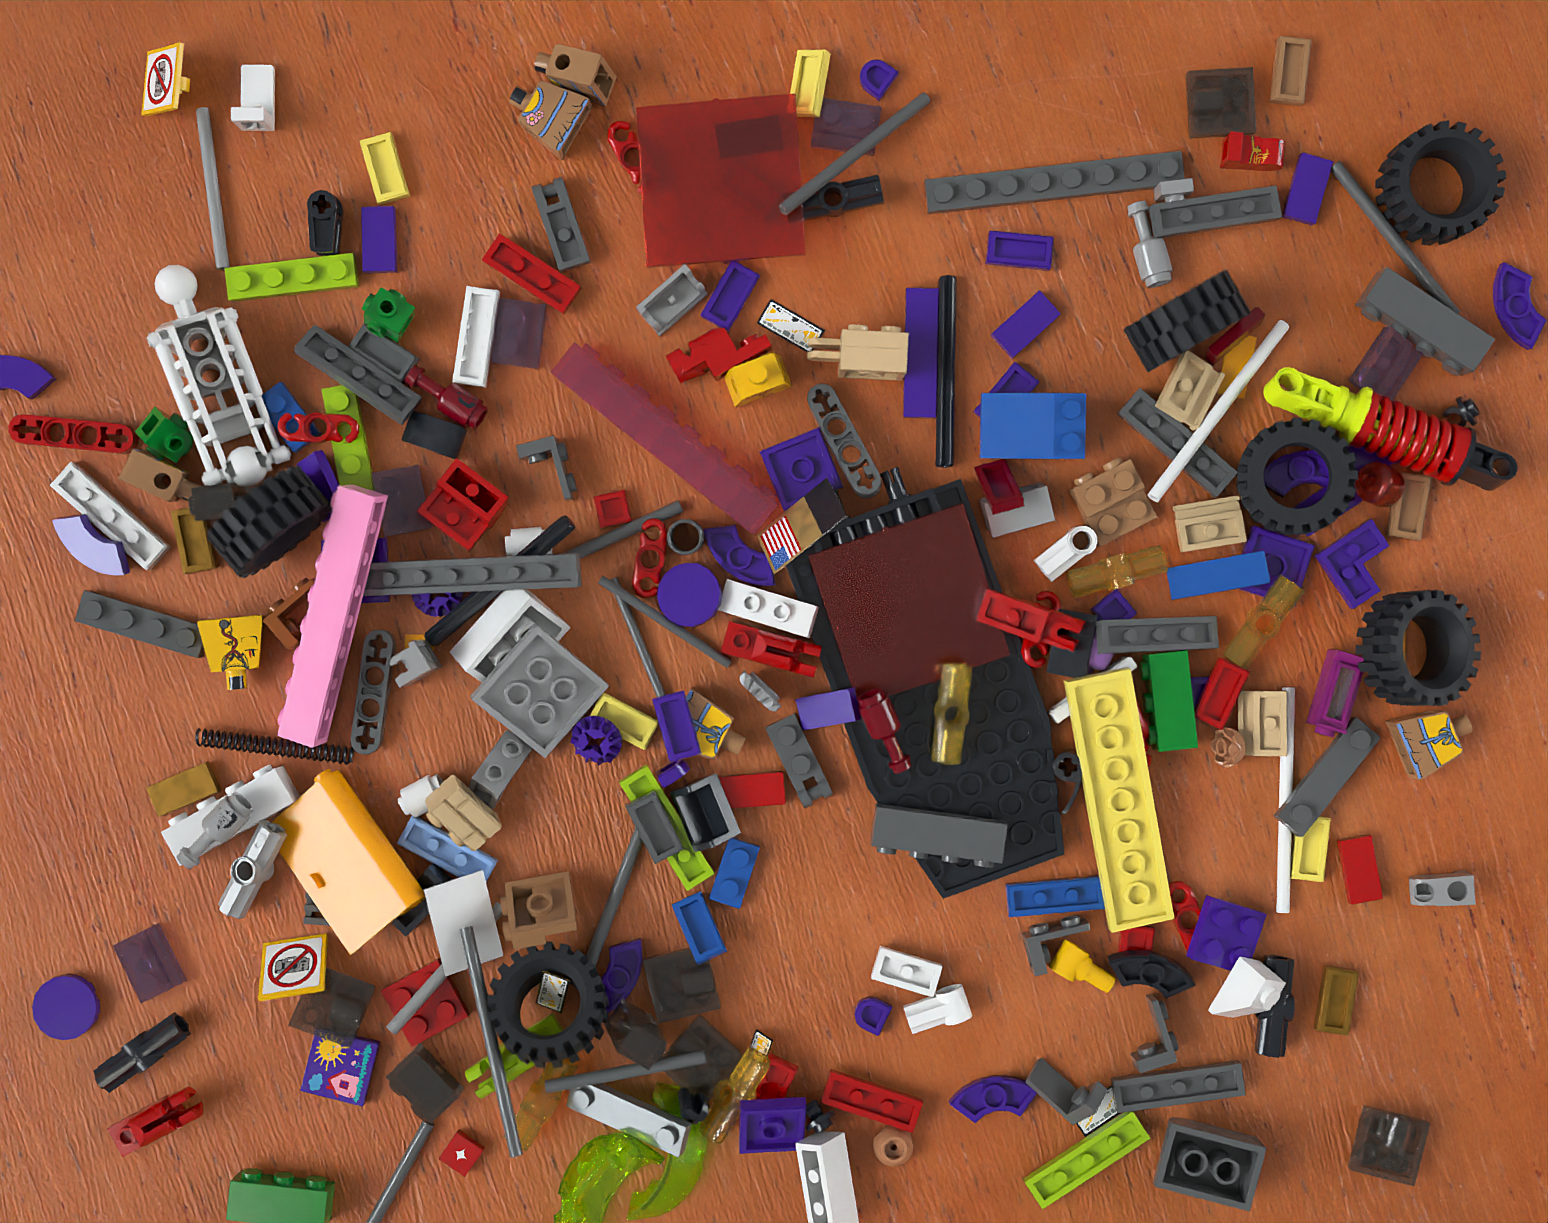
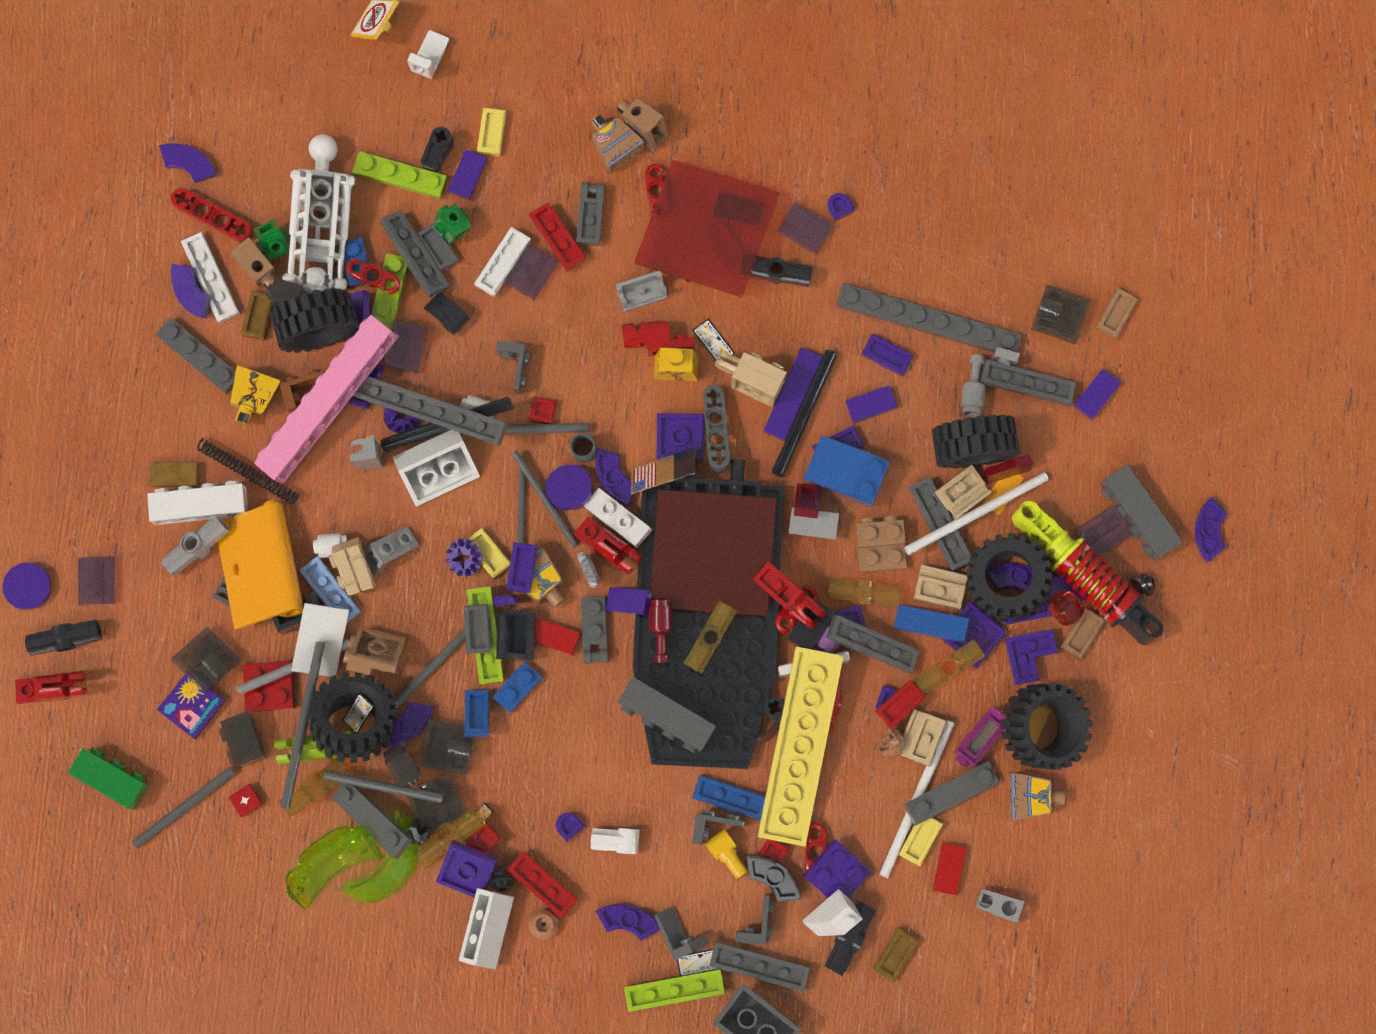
camera: 20 degrees right, 10 degrees down
(212, 188) = (374, 99): light grey piece -> none
(219, 826) = (189, 504): light grey piece -> none
(293, 967) = (192, 622): piece -> none
(378, 692) = (325, 461): dark grey beam -> none
(452, 400) = (468, 295): dark red piece -> none
(463, 505) = (445, 365): red brick -> none
(539, 690) = (441, 507): light grey plate -> none
(658, 545) = (543, 458): red piece -> none
(665, 439) = (598, 379): clear pink brick -> none
(730, 295) = (682, 305): dark purple tile -> none
(810, 81) = (793, 190): light yellow tile -> none
(854, 153) = (802, 246): dark grey piece -> none
(906, 971) = (605, 804): white plate -> none
(1064, 554) = (832, 566): white piece -> none
(1168, 700) = (863, 694): green brick -> none
(1252, 152) = (1069, 355): red leg -> none
(1391, 235) = (1142, 449): dark grey piece -> none
(1471, 161) = (1202, 403): black tyre -> none

